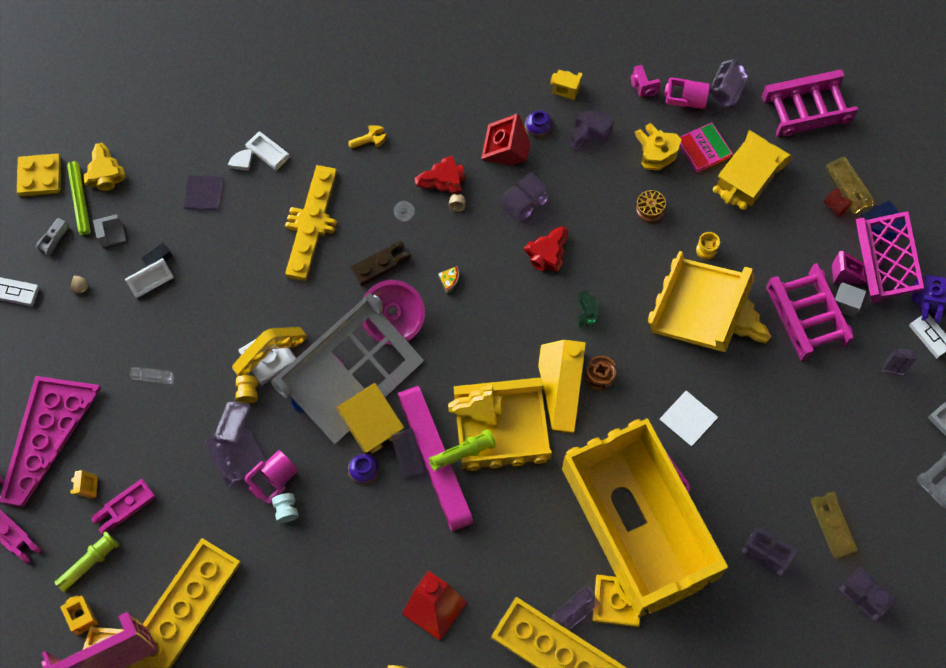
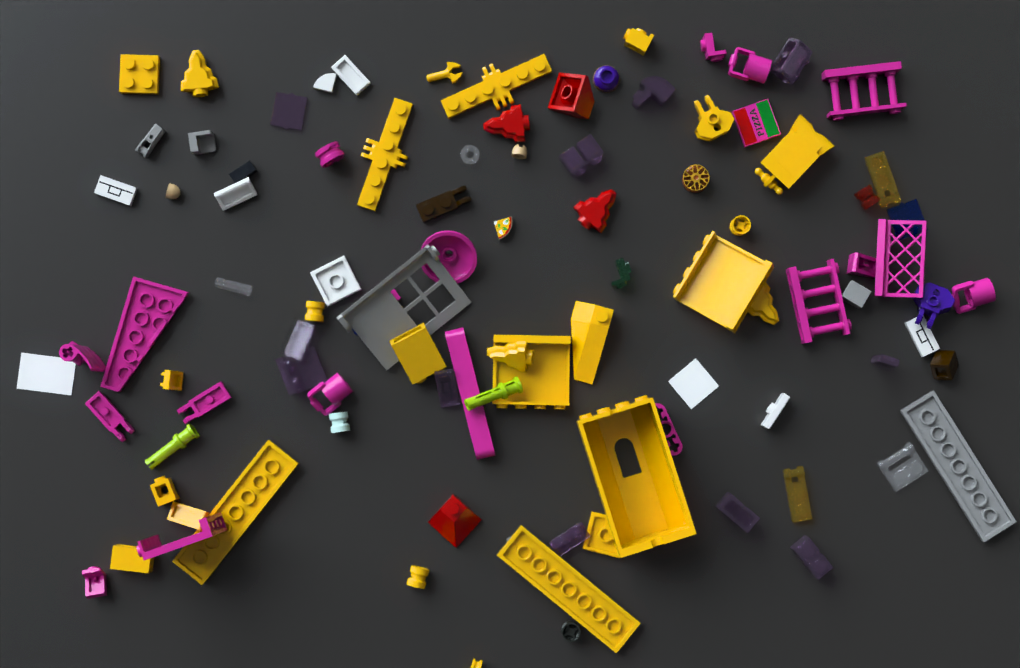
camera: 10 degrees right, 20 degrees up
(78, 198) = (175, 103): lime axle -> none
(250, 225) = (329, 154): none -> dark pink wheel
(270, 339) = (336, 277): yellow beam -> none
(363, 469) = (408, 394): dark purple piece -> none
(423, 144) = (496, 86): none -> yellow hinge
(601, 371) = (623, 334): dark orange wheel -> none
(786, 433) = (774, 410): none -> white plate

